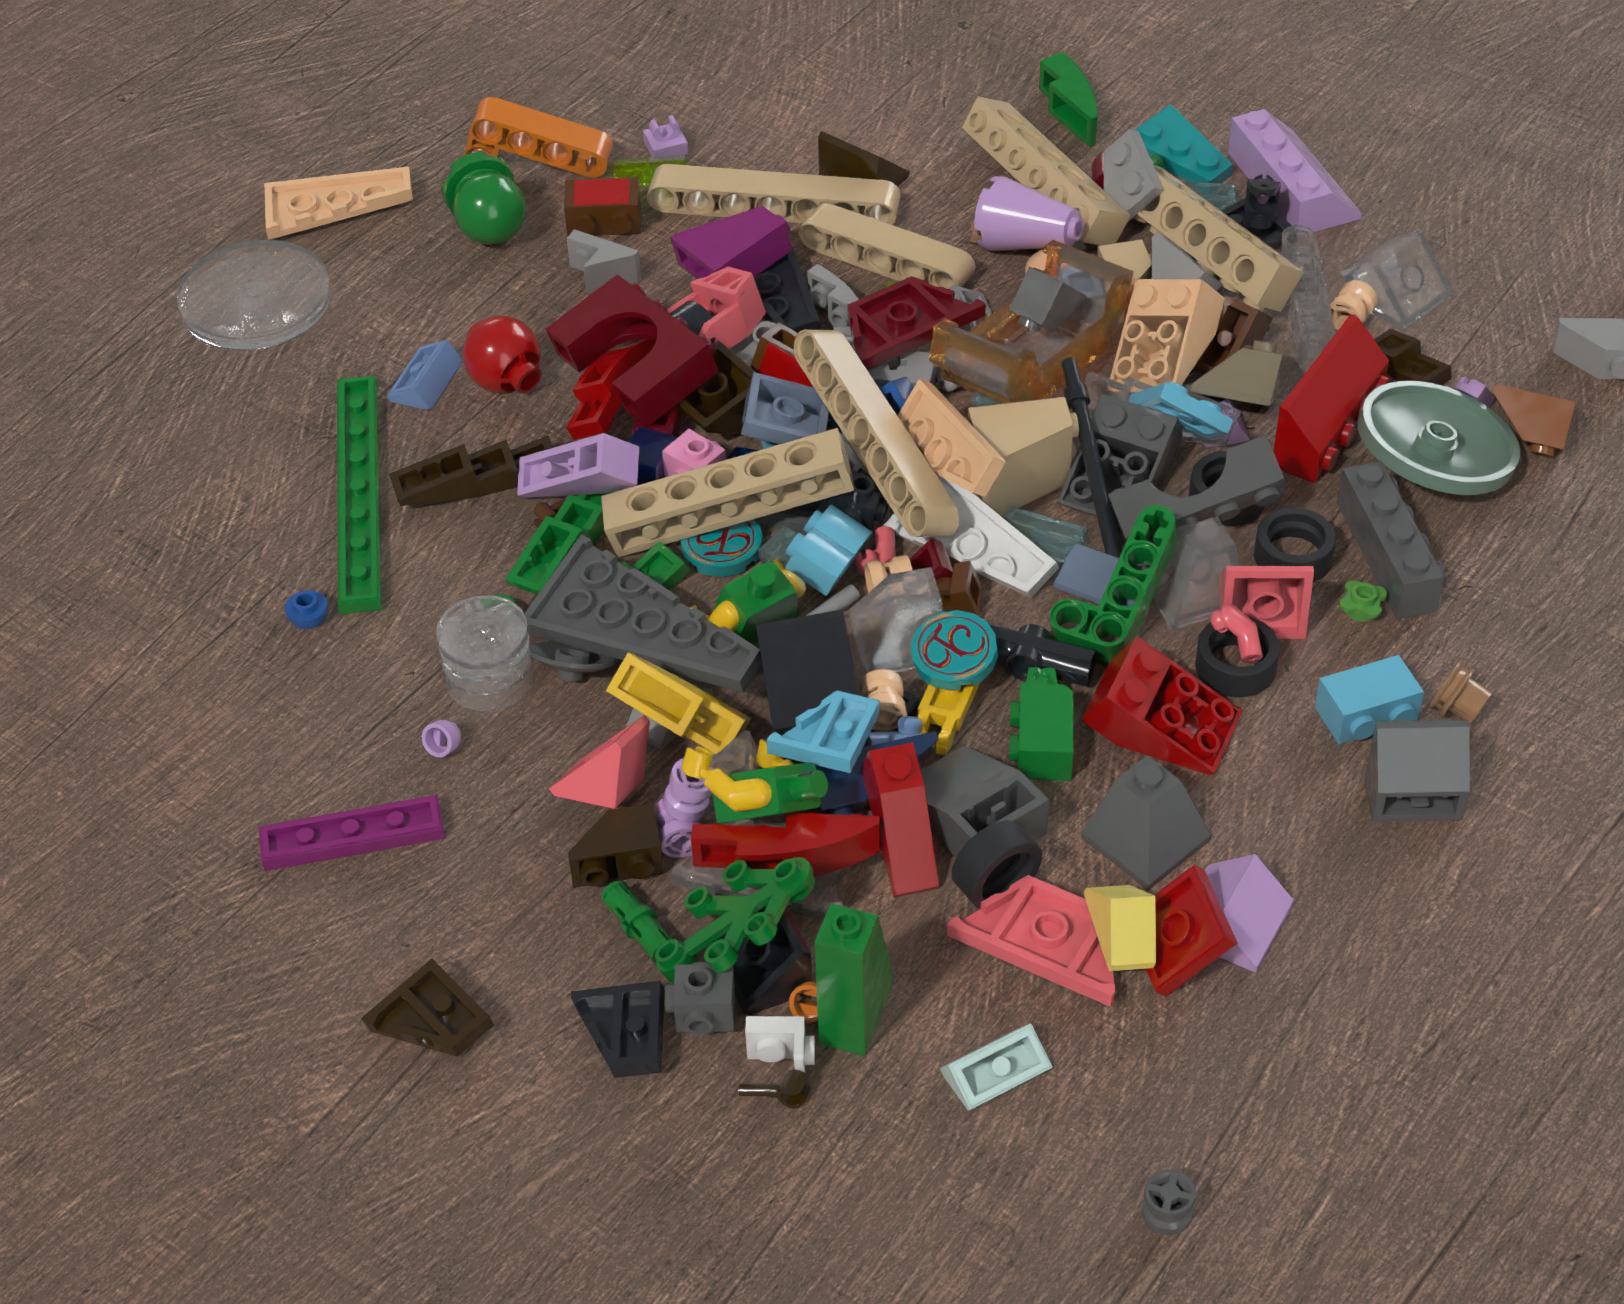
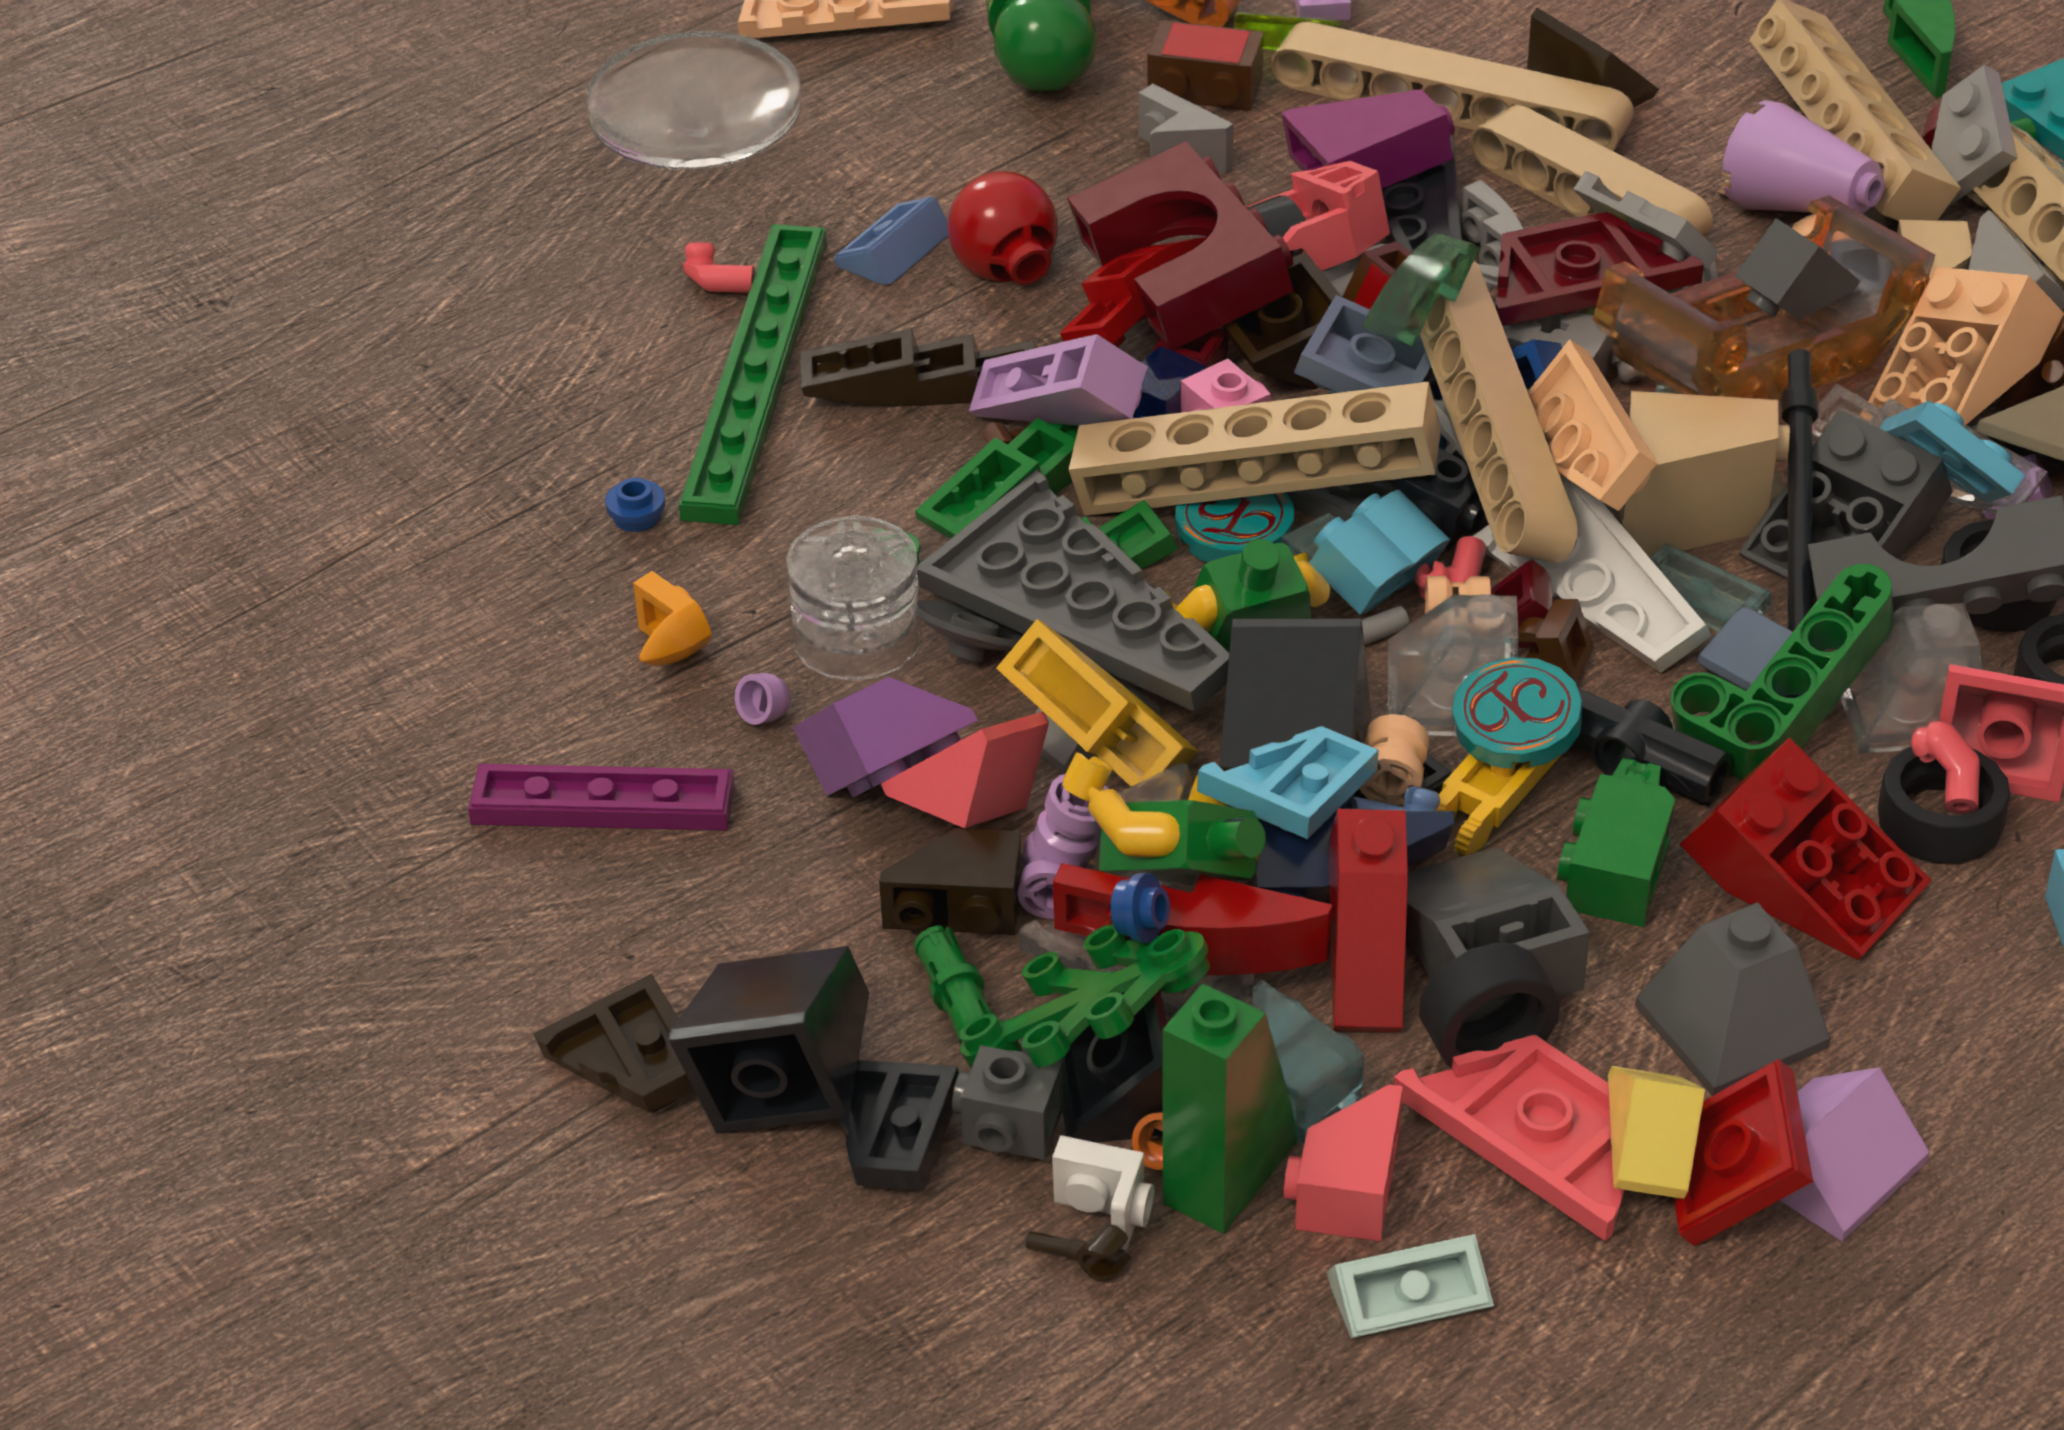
camera: 15 degrees right, 5 degrees down
(305, 425) = (712, 275): none -> coral arm
(361, 692) = (670, 619): none -> light orange plate
(533, 988) = (775, 1039): none -> black slope
(535, 752) = (879, 734): none -> medium lavender slope
(758, 847) = (1140, 907): none -> blue plate
(806, 369) = (1427, 273): none -> clear green slope
(900, 922) = (1318, 1065): none -> clear light blue slope
(936, 995) = (1348, 1168): none -> coral slope
(965, 287) = (1679, 235): none -> light grey wing

